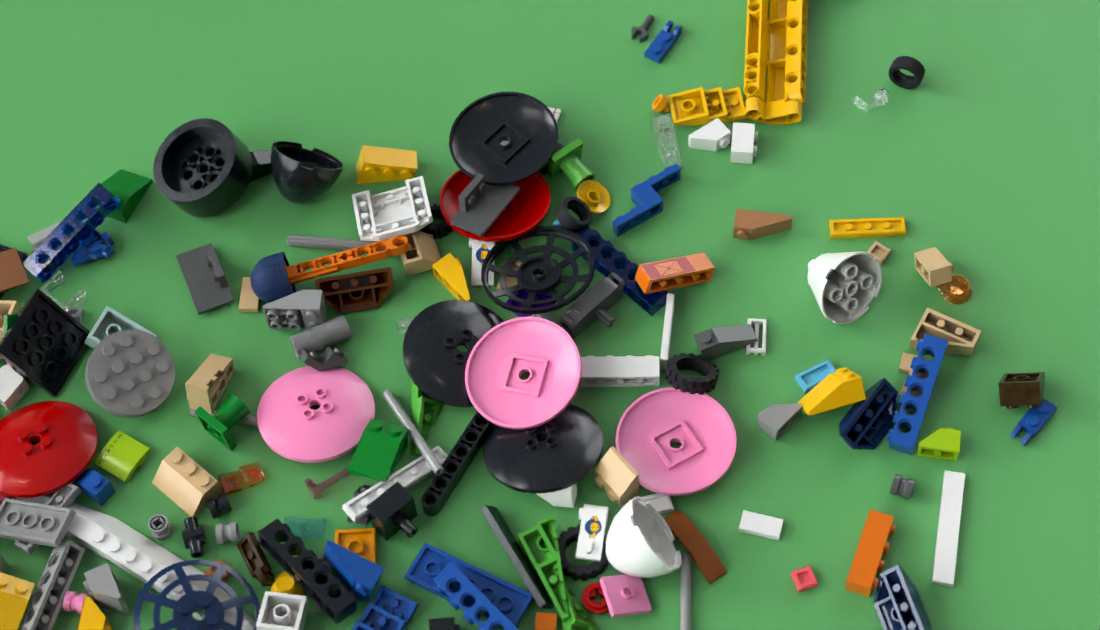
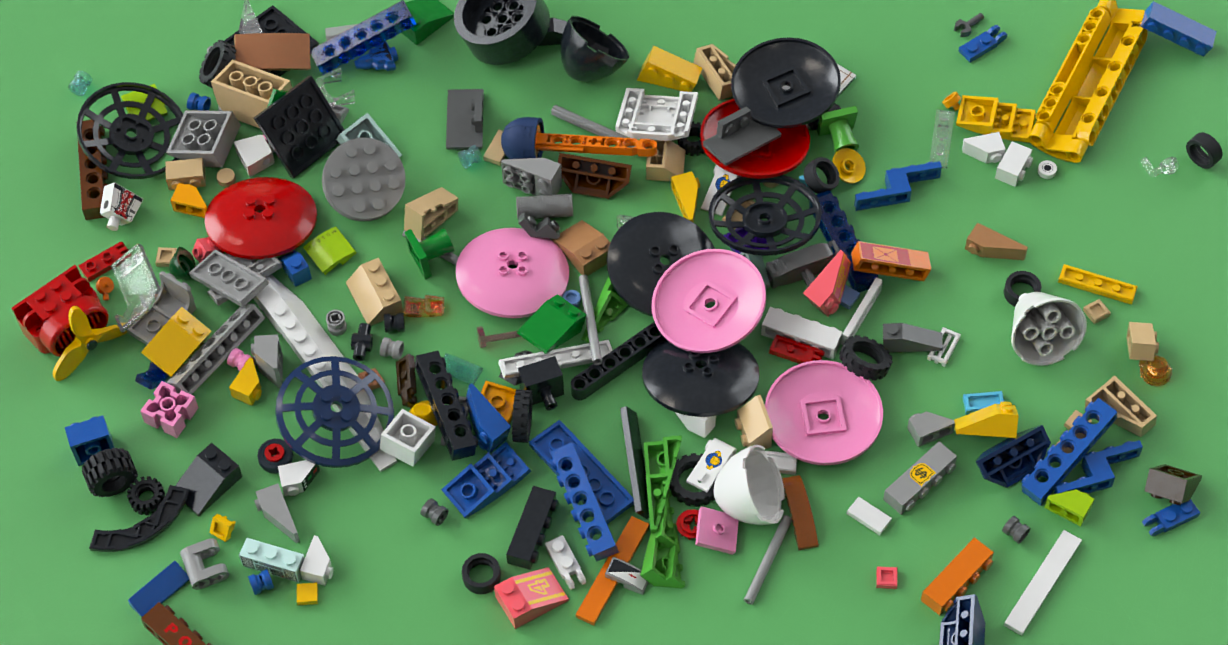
camera: 20 degrees right, 0 degrees up
(225, 313) = (470, 156): none -> clear light blue wheel
(376, 363) = (584, 247): none -> medium nougat slope
(385, 415) = (573, 297): none -> medium blue tile
(389, 553) = (522, 416): none -> black tyre
(430, 149) = (716, 70): none -> tan wedge
(621, 390) = (794, 350): none -> red hinge
(627, 323) = (829, 285): none -> coral slope
(645, 321) = (849, 297): none -> medium blue tile
(774, 138) = (1047, 169): none -> white tile
(792, 471) = (920, 478): none -> light grey brick
(797, 245) = (1020, 277): none -> black tyre
(949, 401) = (1098, 470): none -> blue bracket

